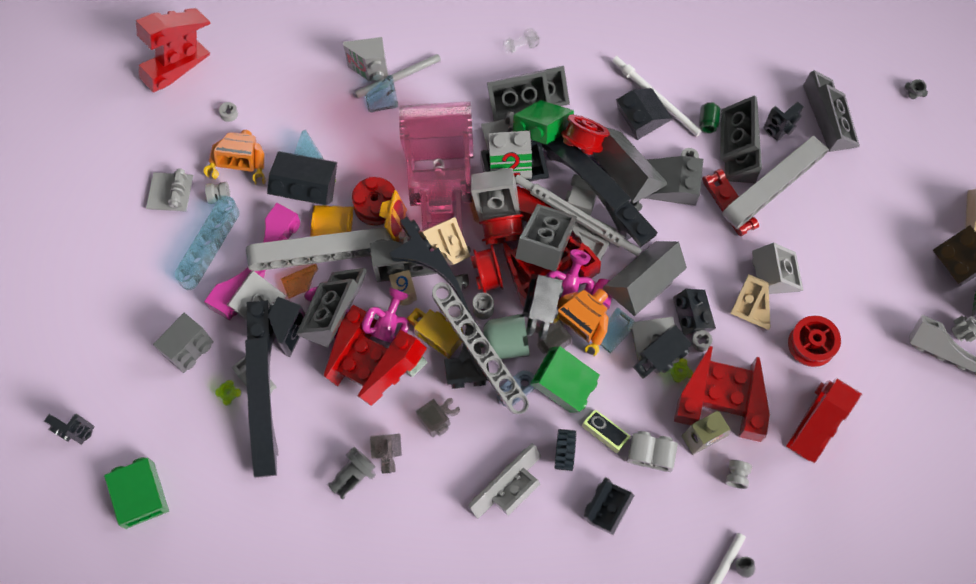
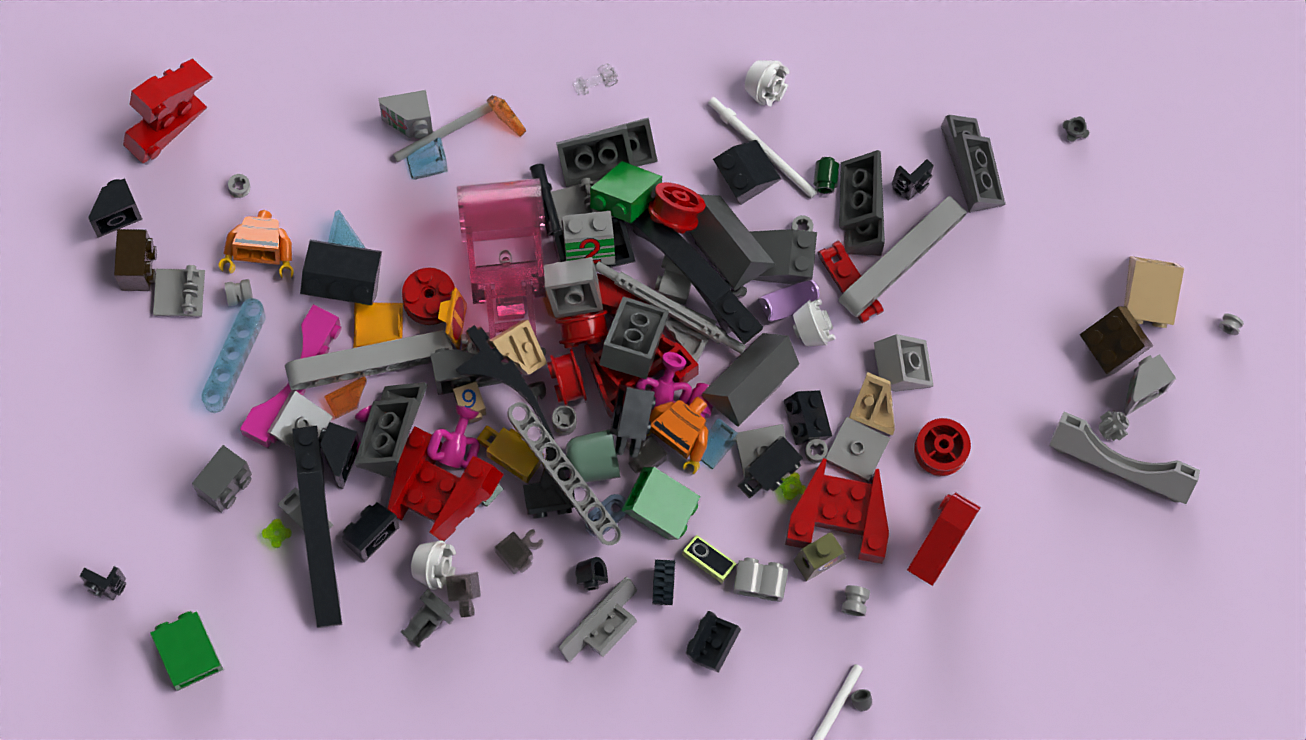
camera: 10 degrees left, 5 degrees up
(121, 123) = (114, 208): none -> black slope
(133, 162) = (134, 260): none -> dark brown brick
(308, 393) = (370, 531): none -> black slope
(359, 424) = (433, 563): none -> white cone
(447, 64) = (506, 114): none -> clear orange tile
(478, 135) = (550, 215): none -> black pin
(501, 439) = (591, 573): none -> black plate
(660, 43) = (766, 81): none -> white cone
(680, 215) = (788, 300): none -> lavender piece
(699, 234) = (813, 324): none -> white cone
(738, 341) = (857, 449): none -> light grey plate

